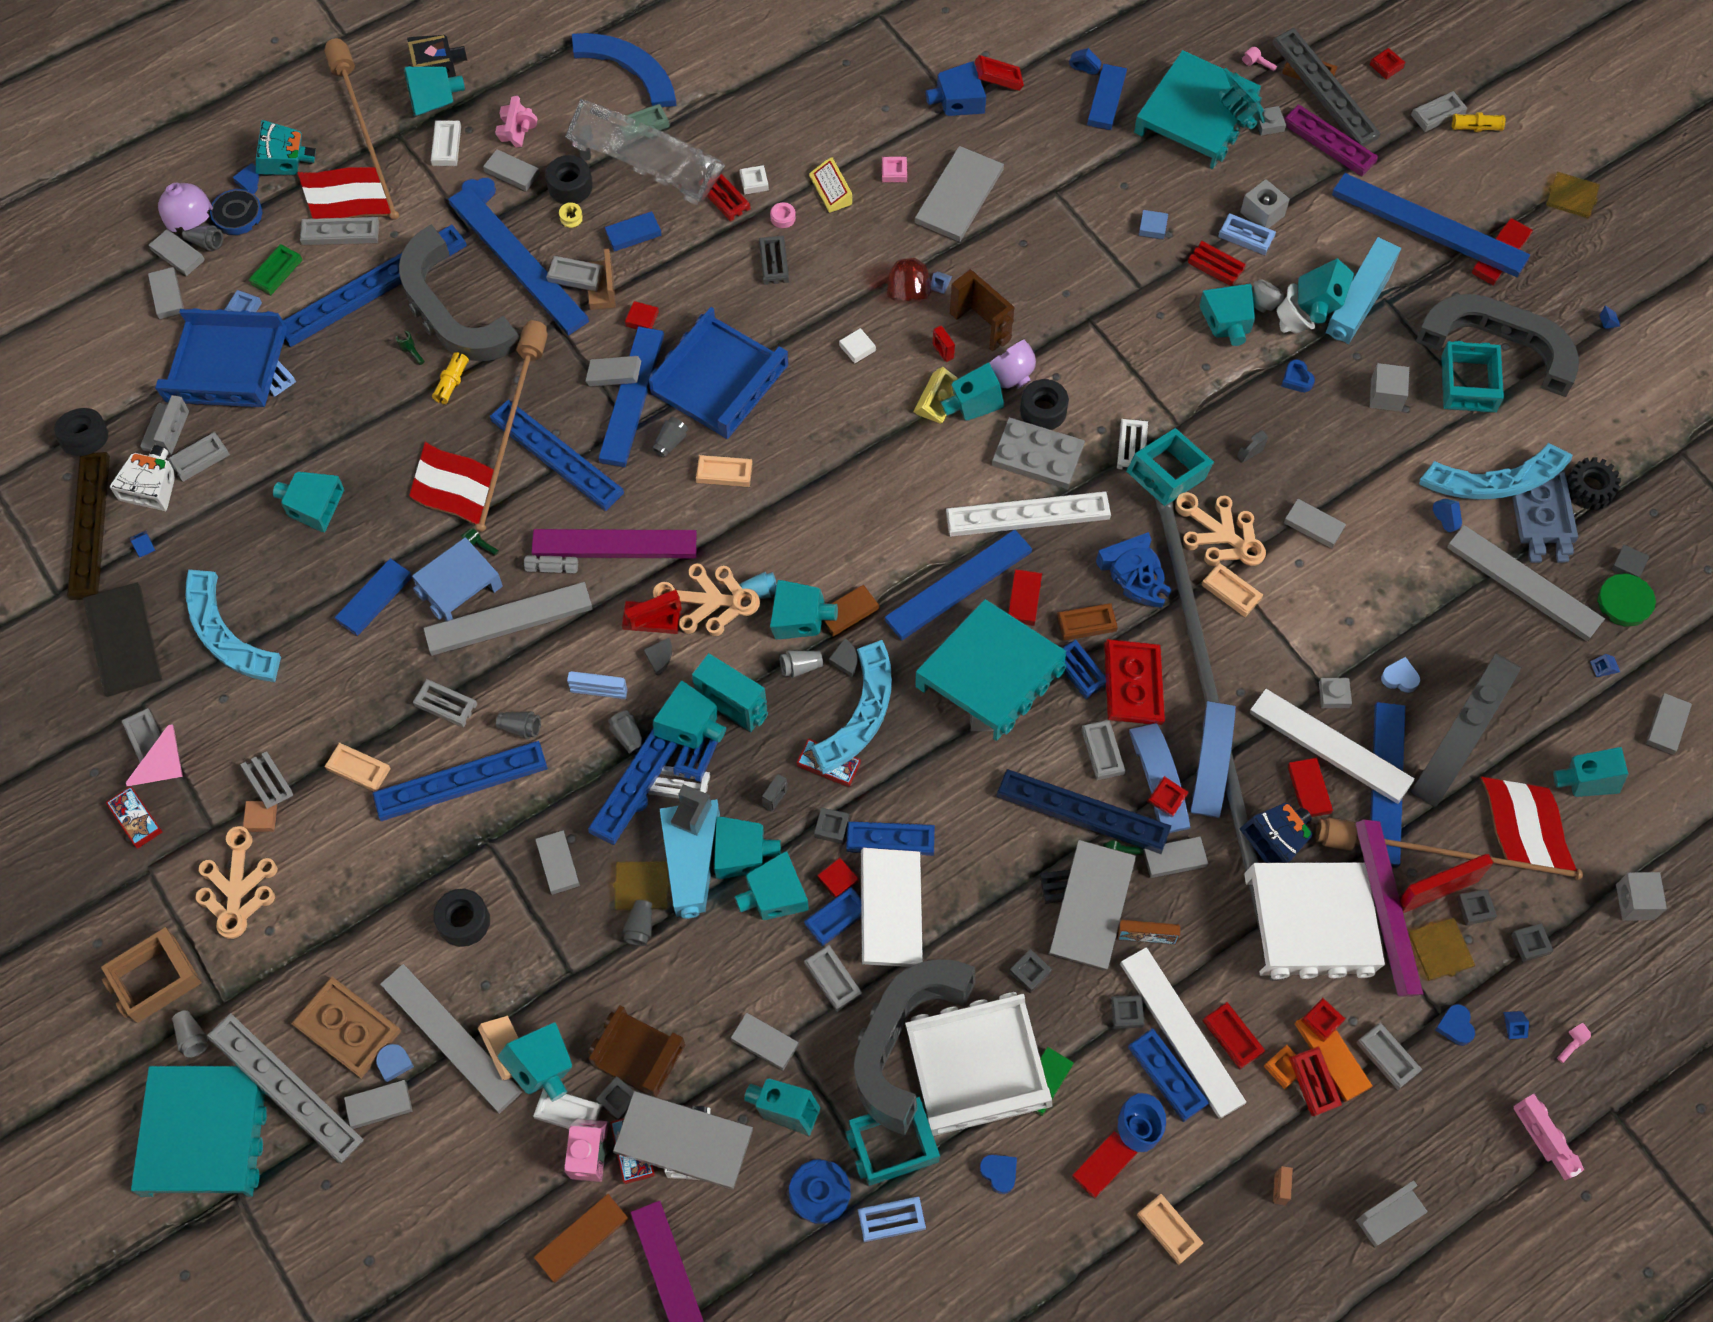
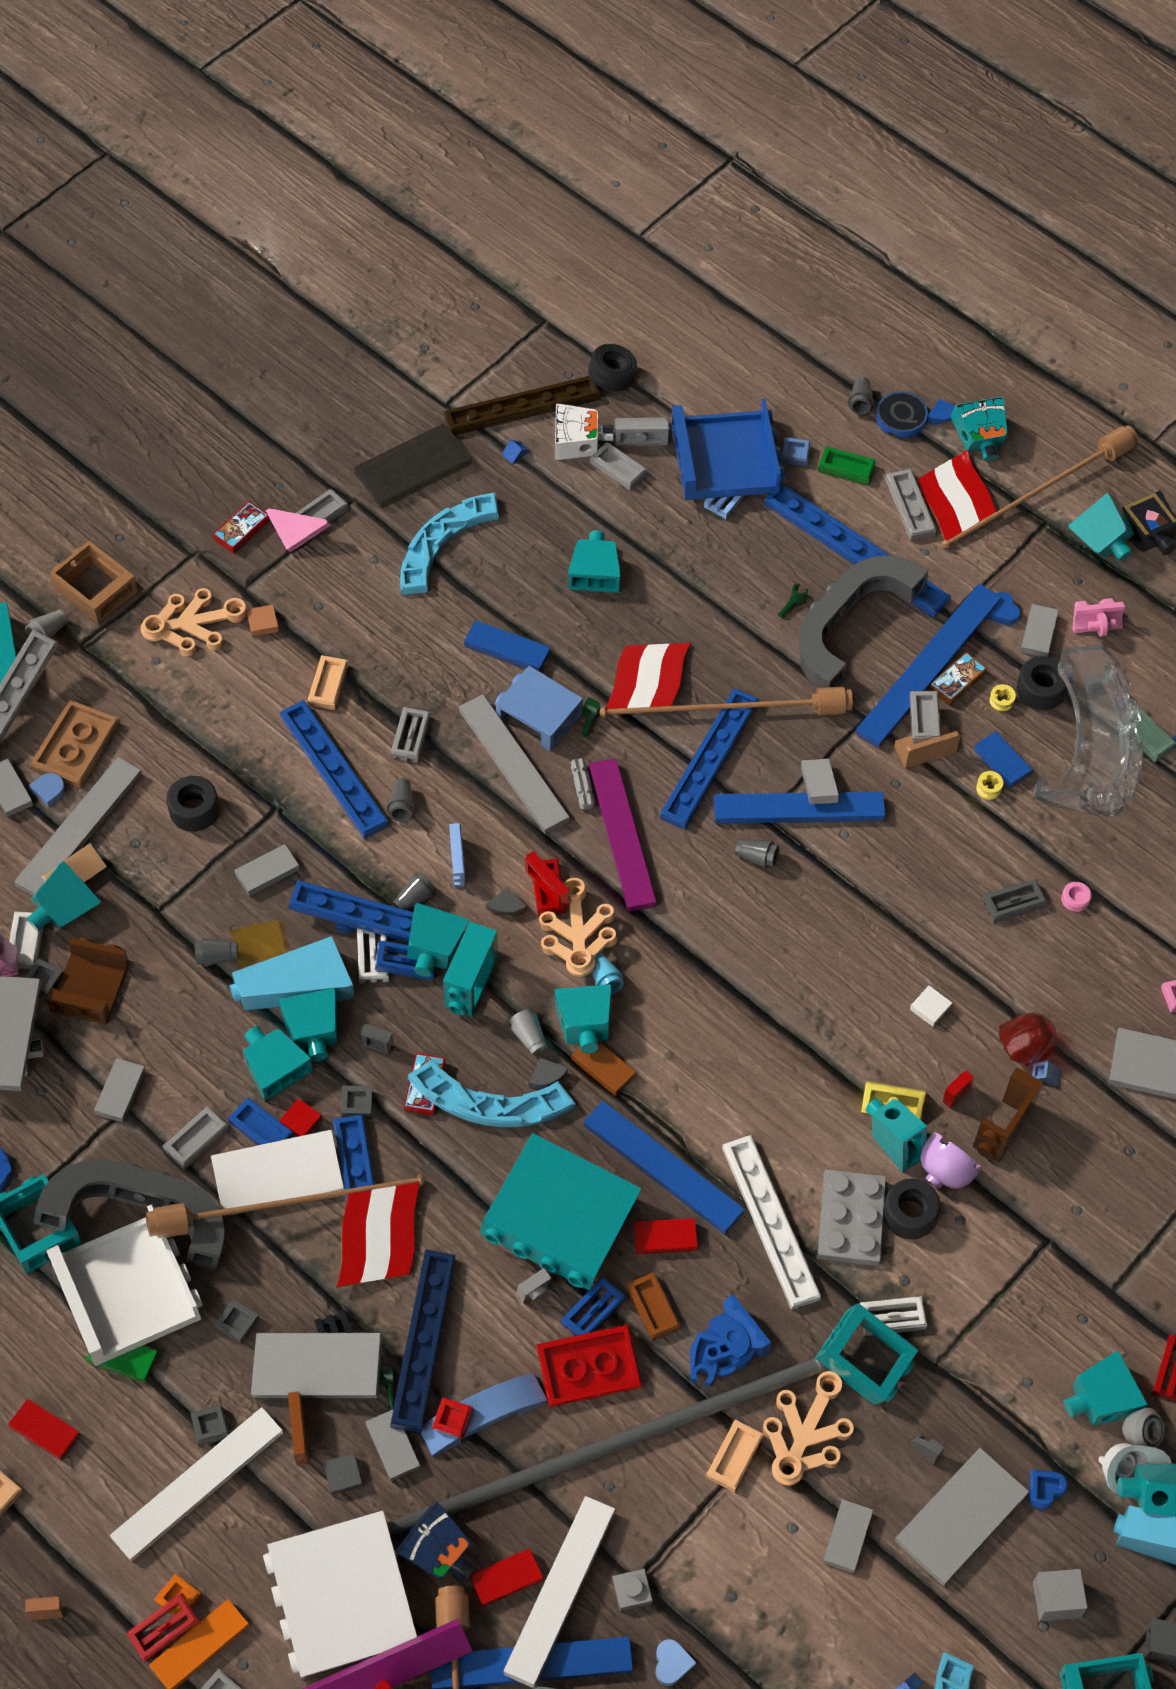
camera: 75 degrees right, 5 degrees down
(166, 292) = (789, 387): light grey tile -> none
(176, 252) = (837, 381): light grey tile -> none
(183, 206) = (884, 368): lavender cylinder -> none
(257, 764) = (303, 597): light grey tile -> none
(445, 143) = (1051, 565): white tile -> none
(450, 378) = (768, 643): yellow pin -> none
(538, 241) = (958, 678): none -> tile
(641, 315) = (898, 793): red tile -> none
(656, 240) = (983, 790): none -> light yellow bush
(692, 809) = (330, 962): dark grey panel -> none
(717, 374) = (850, 878): blue panel -> none
(724, 471) = (736, 913): light nougat tile -> none
(736, 210) = (1068, 851): red tile -> none
(754, 179) = (1113, 858): white tile -> none
(785, 1105) = (52, 1108): teal torso -> none
(831, 185) = (1131, 935): slope -> none
(970, 833) = (374, 1227): none -> flag
(1000, 1171) = (22, 1331): blue tile -> none
(1052, 708) = (534, 1286): none -> light grey plate
(1103, 750) = (502, 1350): light grey tile -> none
(1141, 1122) = (91, 1456): blue hat -> none
(1168, 1075) = (149, 1477): blue tile -> none
(1195, 904) = (342, 1474): none -> dark grey tile
(1213, 759) = (513, 1459): medium blue slope -> none
(1233, 1035) = (203, 1538): red tile -> none
(1311, 440) = (961, 1516): none -> light grey tile
(1323, 1019) = (231, 1624): red tile -> none

